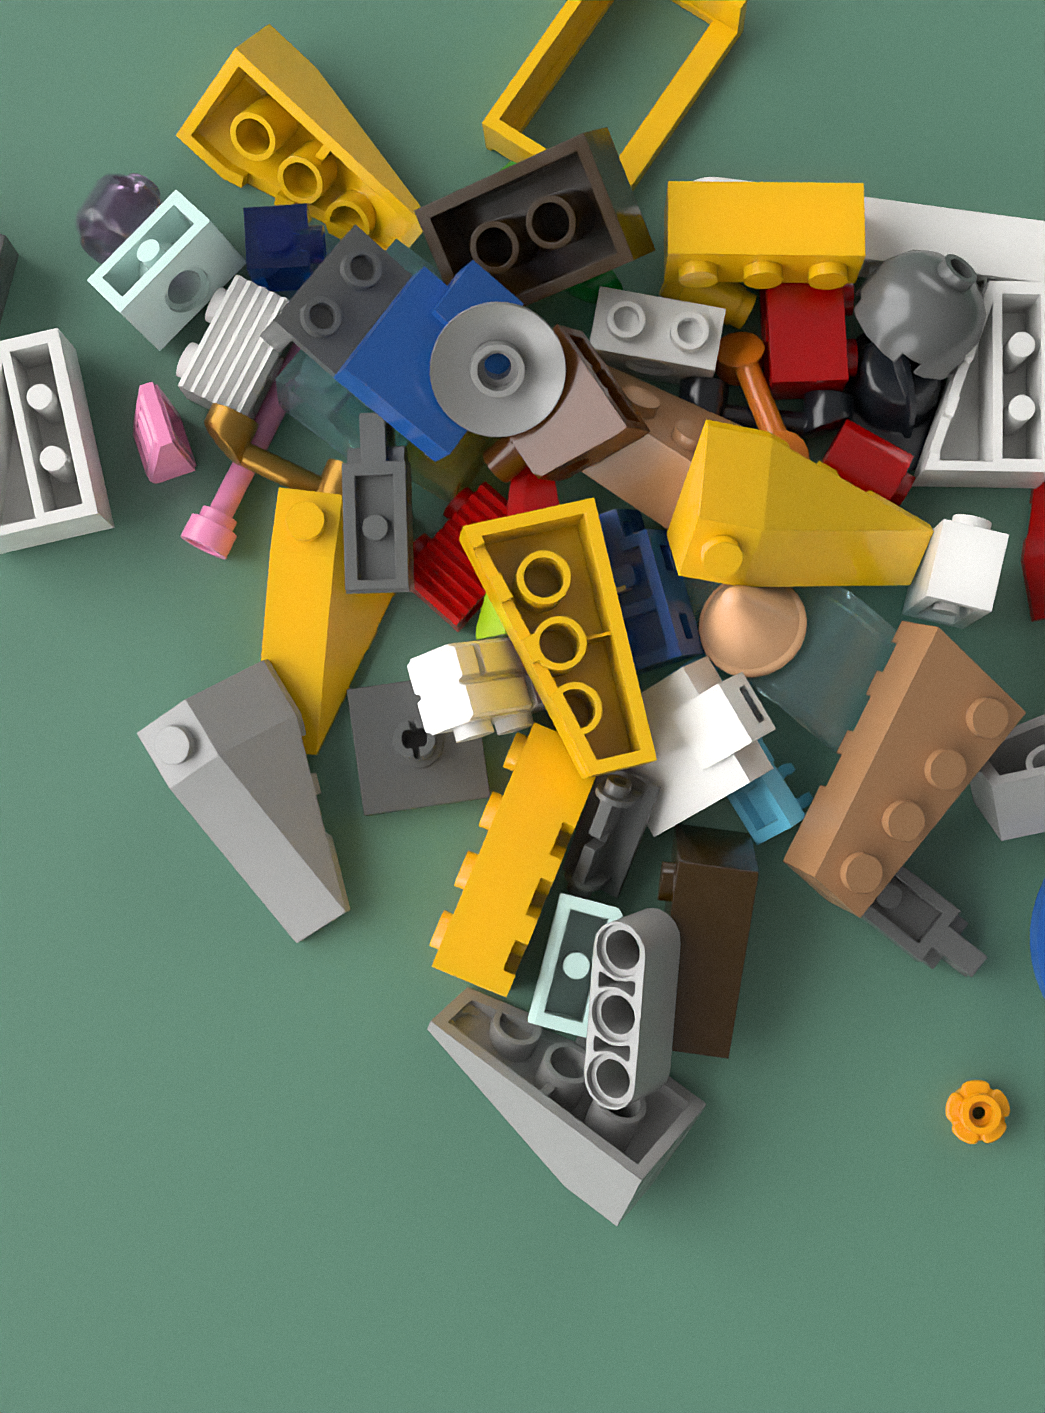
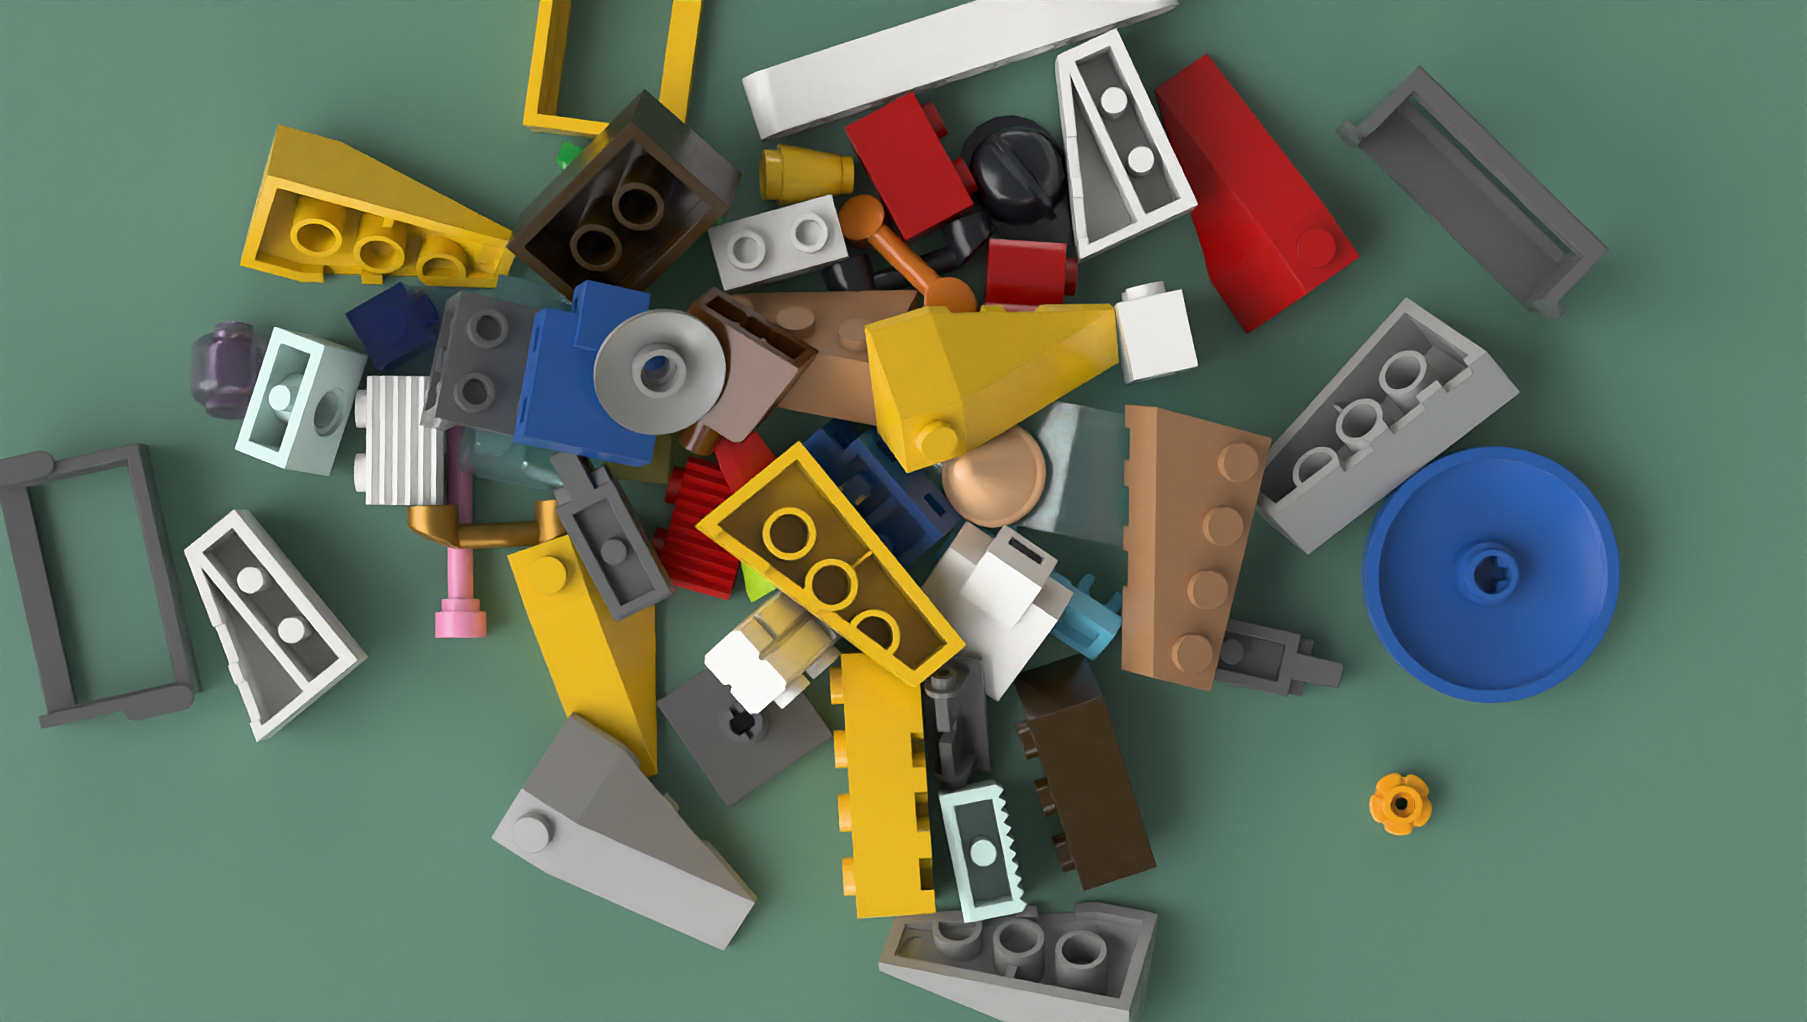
camera: 30 degrees left, 5 degrees up
(161, 436) = (373, 557): bright pink slope -> none
(628, 1049) = (1049, 866): light grey beam -> none
(764, 233) = (833, 113): yellow brick -> none
(923, 309) = (1009, 113): dark grey cylinder -> none

